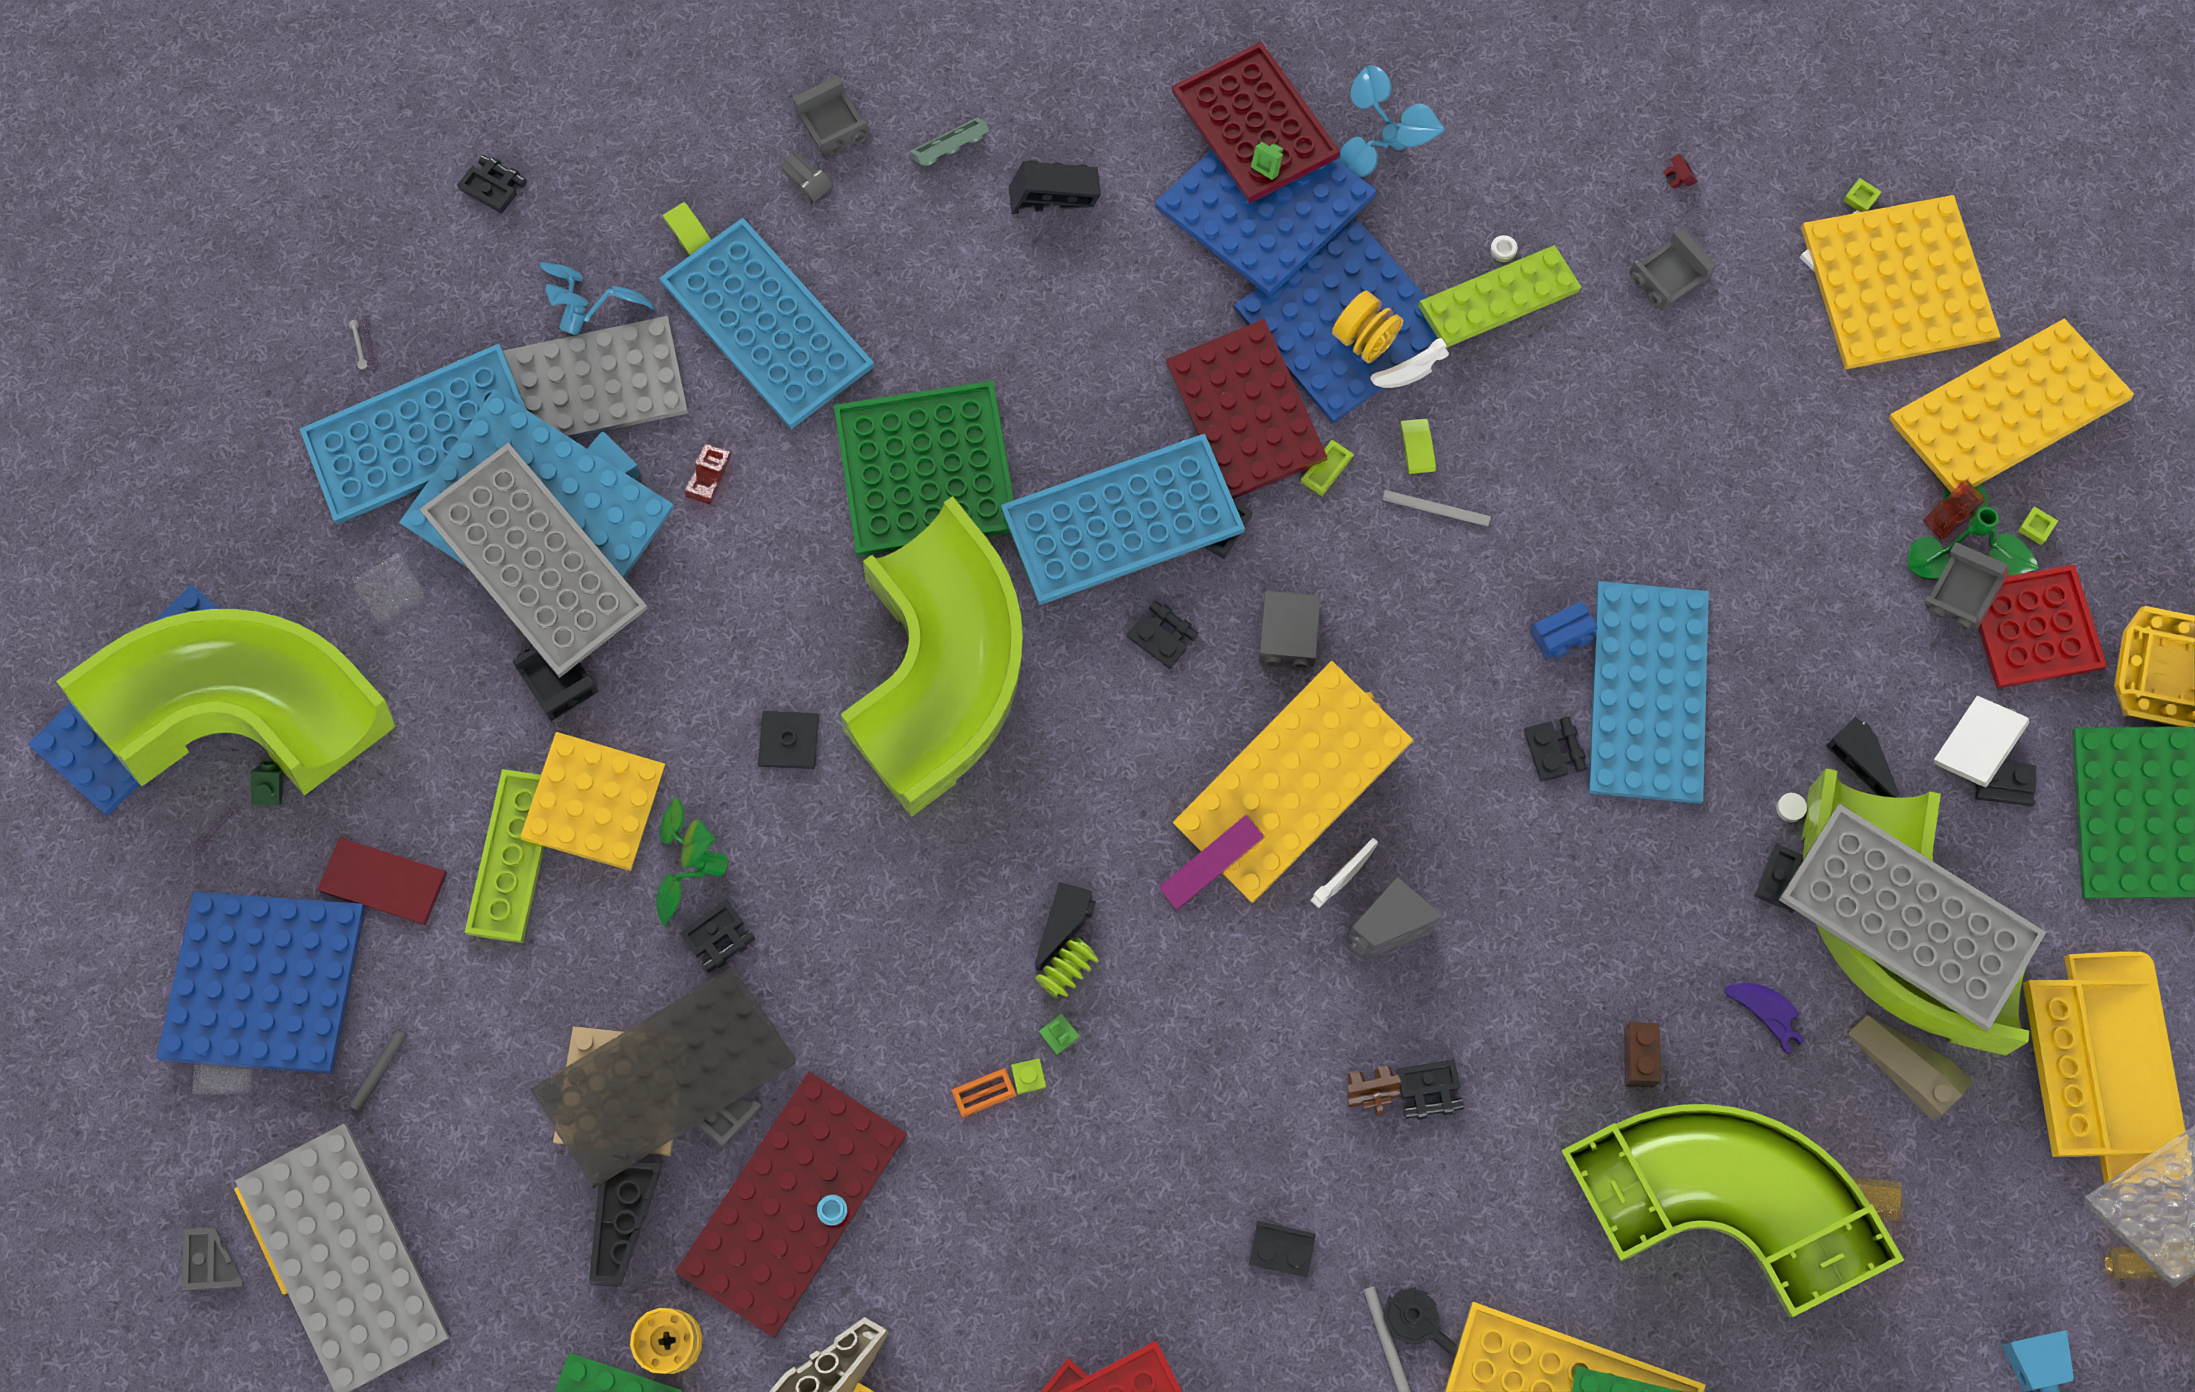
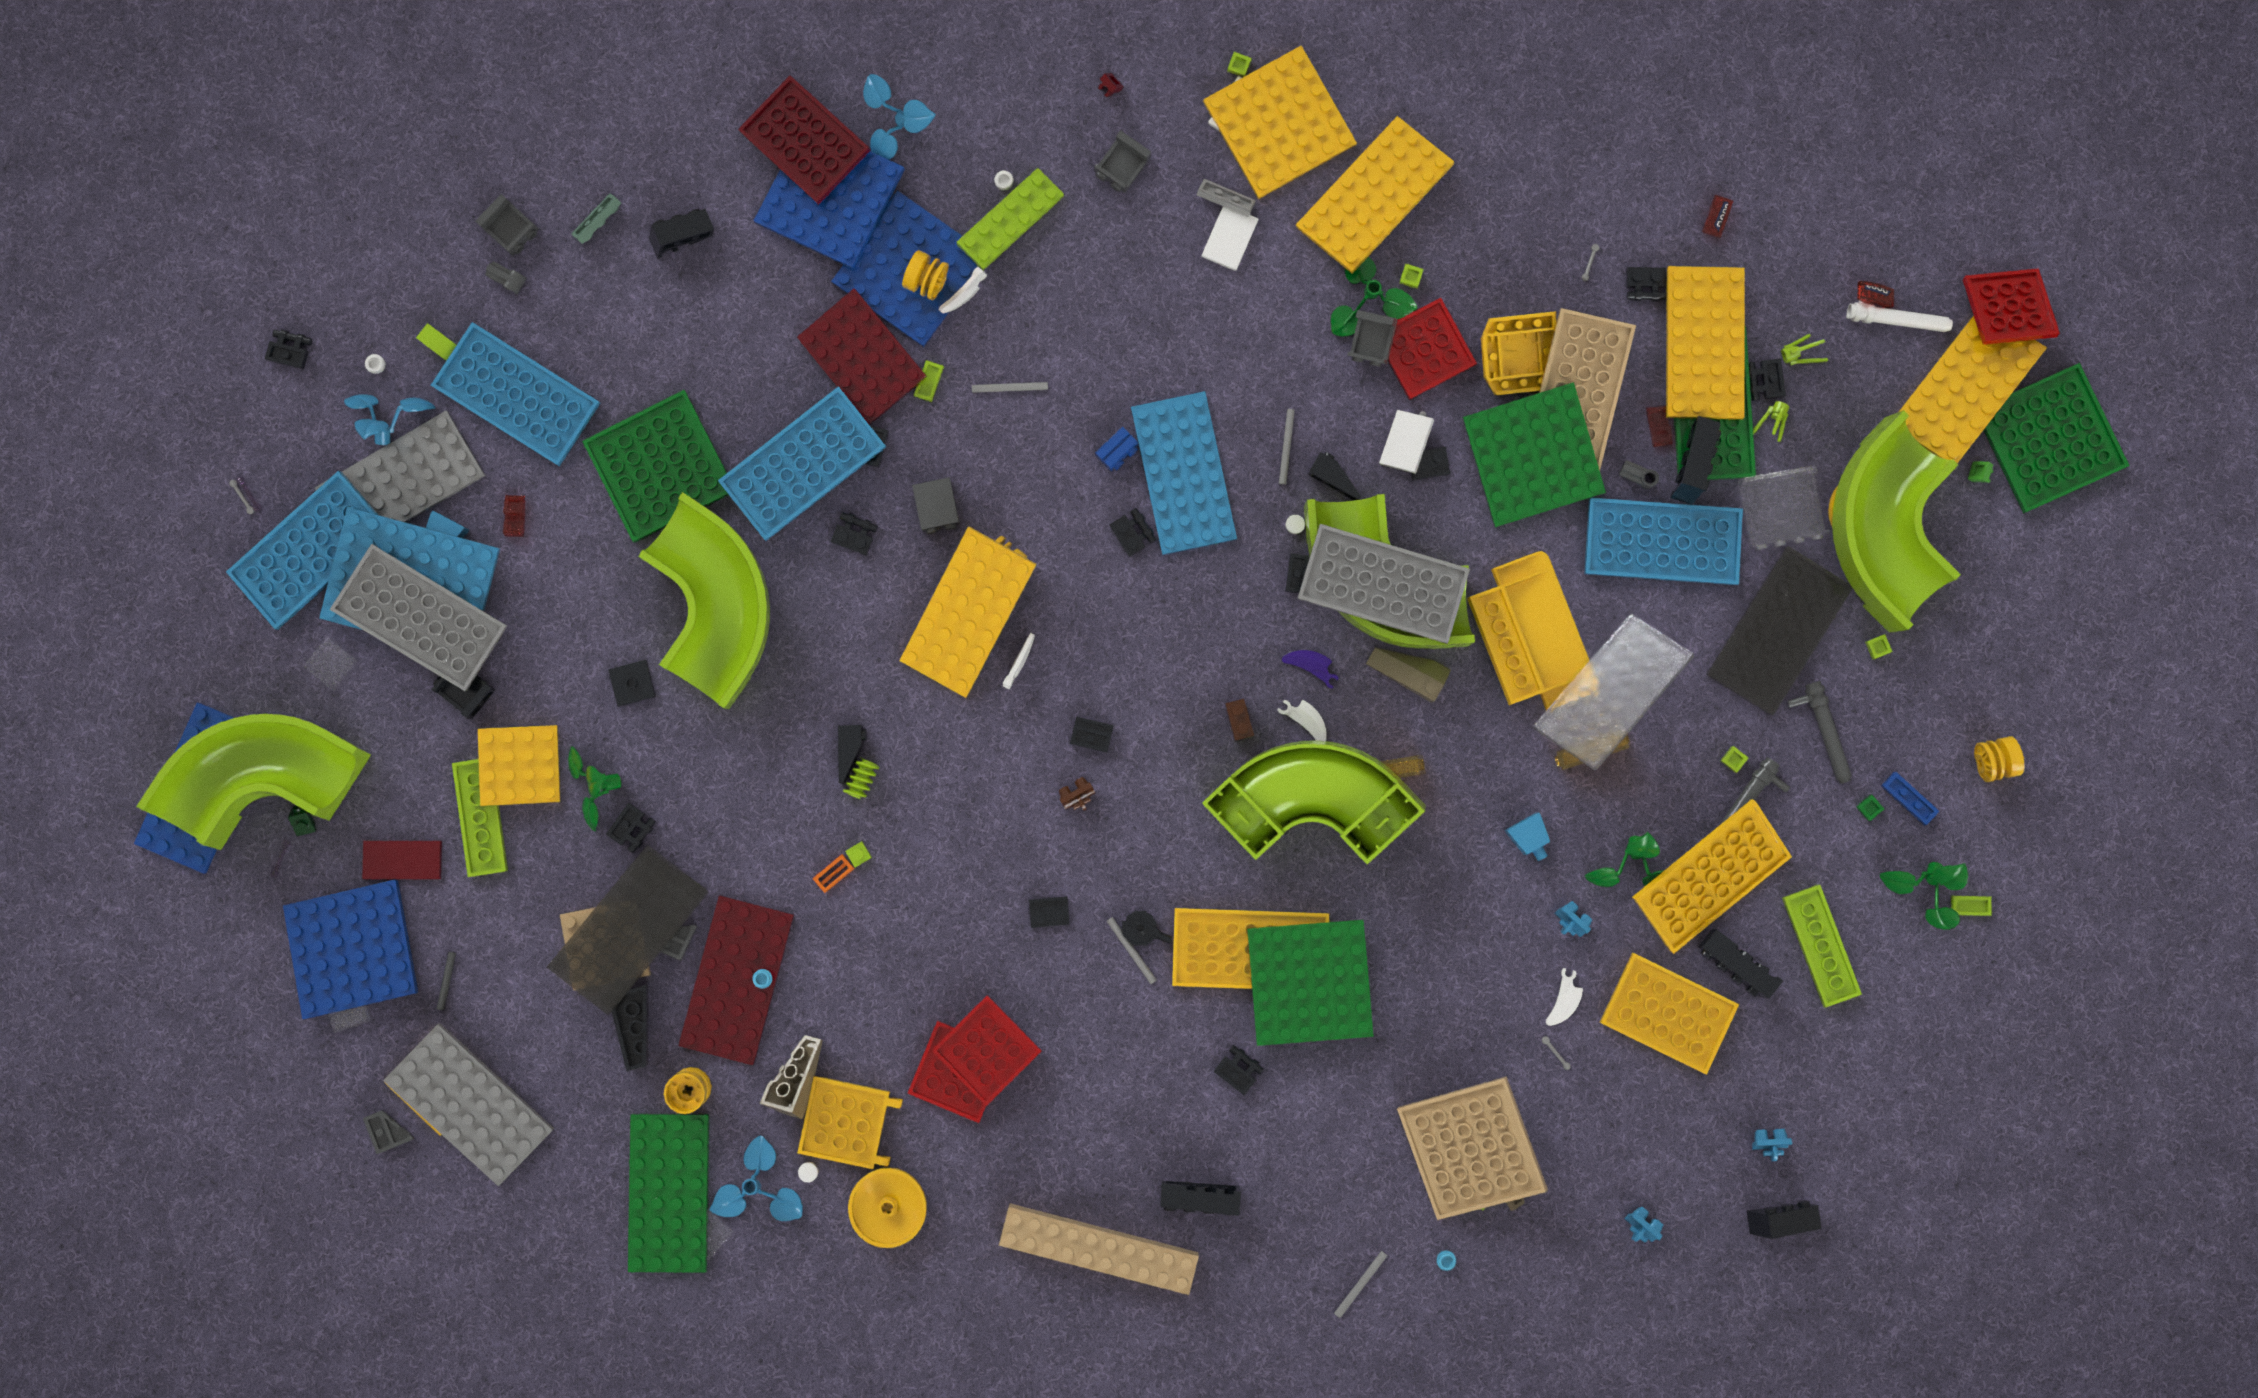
camera: 15 degrees left, 15 degrees up
(596, 233) = (375, 364): none -> white tile
(1059, 1034) = (869, 821): bright green tile -> none
(1212, 862) = (932, 680): magenta tile -> none
(1267, 159) = (820, 171): bright green tile -> none
(1393, 921) = (1057, 684): dark grey slope -> none
(1418, 446) = (985, 346): lime slope -> none
(1418, 1010) = (1091, 734): none -> black plate
(1427, 1080) = (1110, 777): black plate -> none
(1740, 1080) = (1308, 717): none -> white piece
(1794, 405) = (1229, 238): none -> white tile
(1802, 353) = (1226, 197): none -> light grey tile
(1805, 699) = (1286, 447): none -> light grey bar
(1954, 510) = (1353, 283): clear red slope -> none

